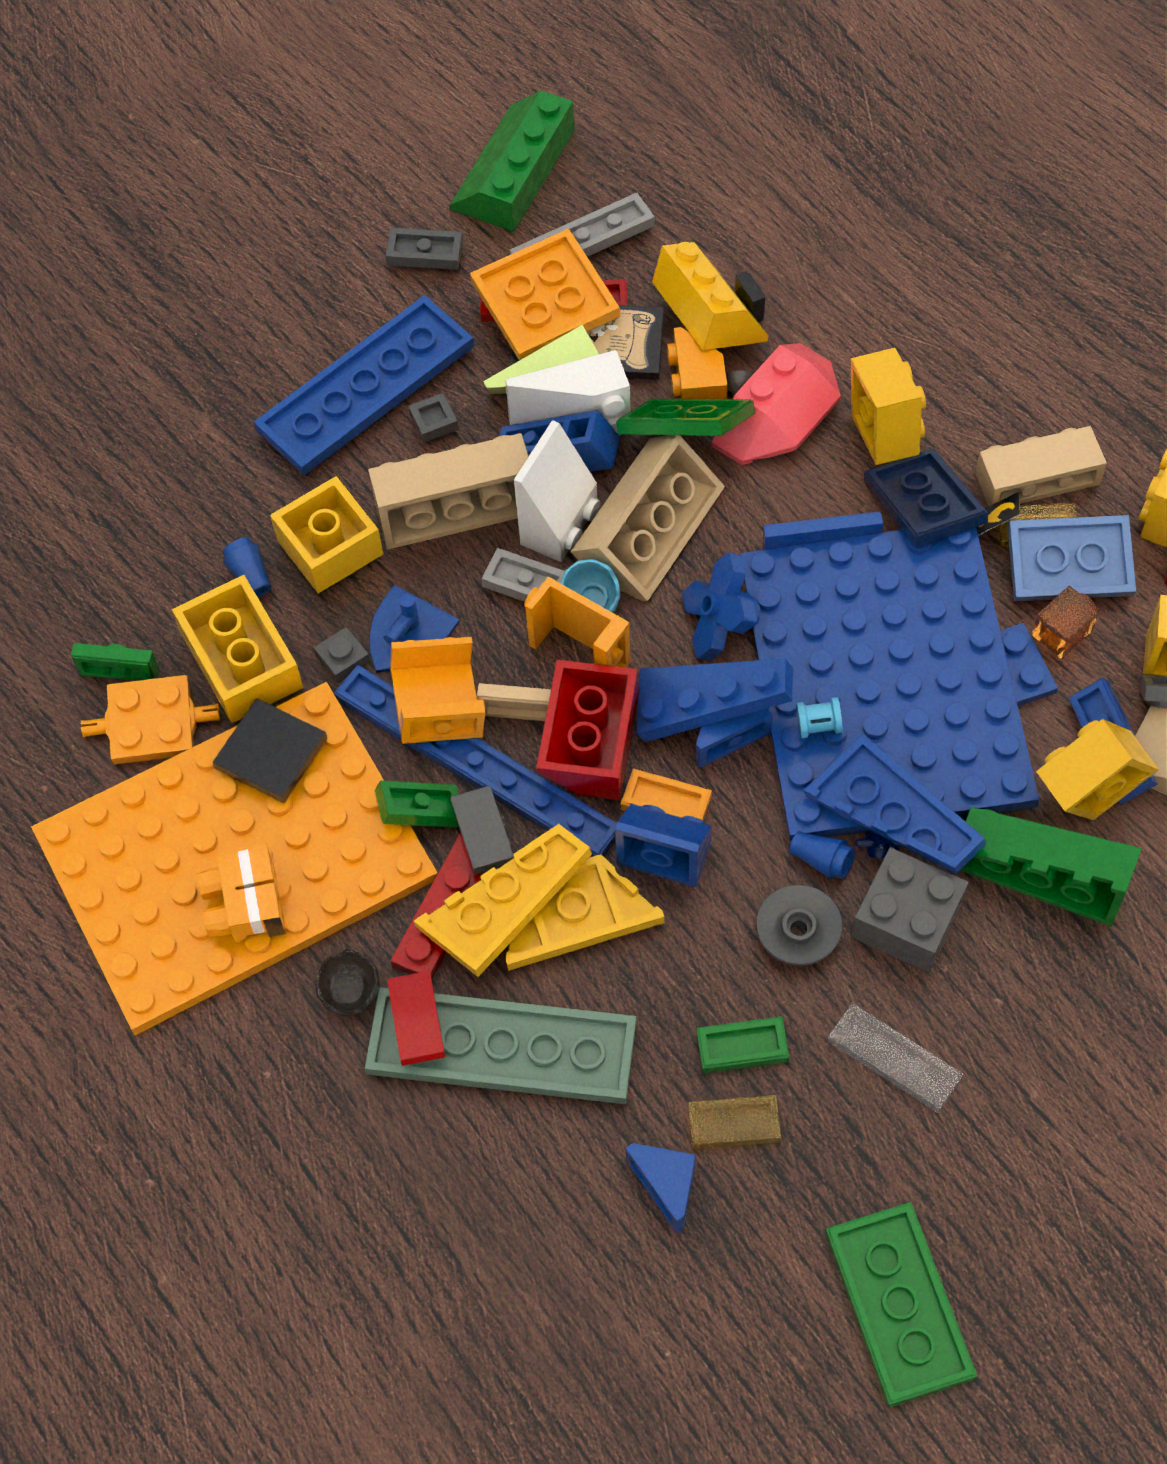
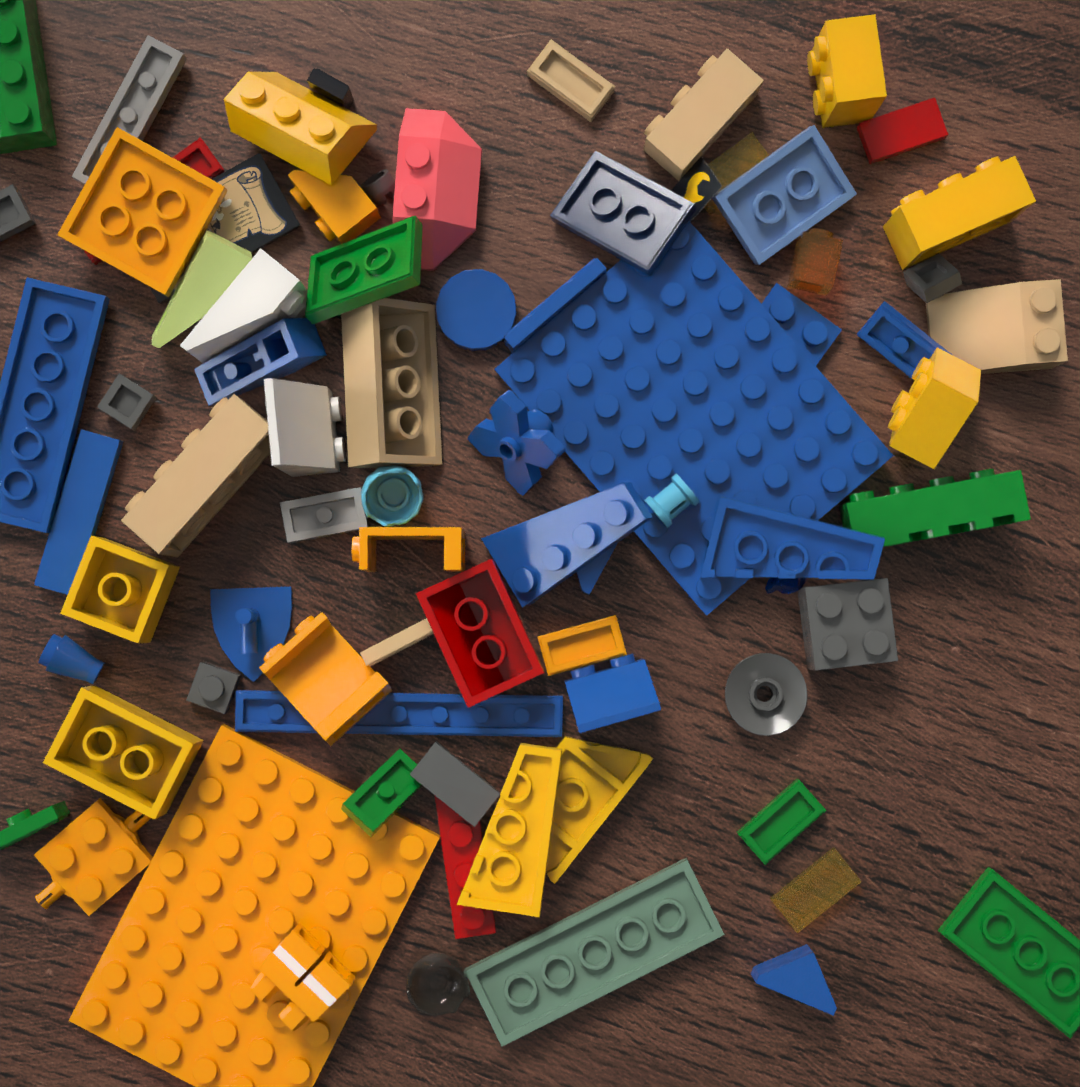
camera: 35 degrees left, 25 degrees up
(270, 750) = (223, 828): black tile -> none
(348, 462) = (78, 509): none -> blue tile
(415, 1018) = (517, 985): red slope -> none
(752, 502) = (476, 309): none -> blue tile
(825, 854) = (744, 615): blue cone -> none
(887, 406) = (536, 141): yellow brick -> none
(895, 1057) = (906, 753): clear tile -> none
(947, 393) = (570, 80): none -> tan tile

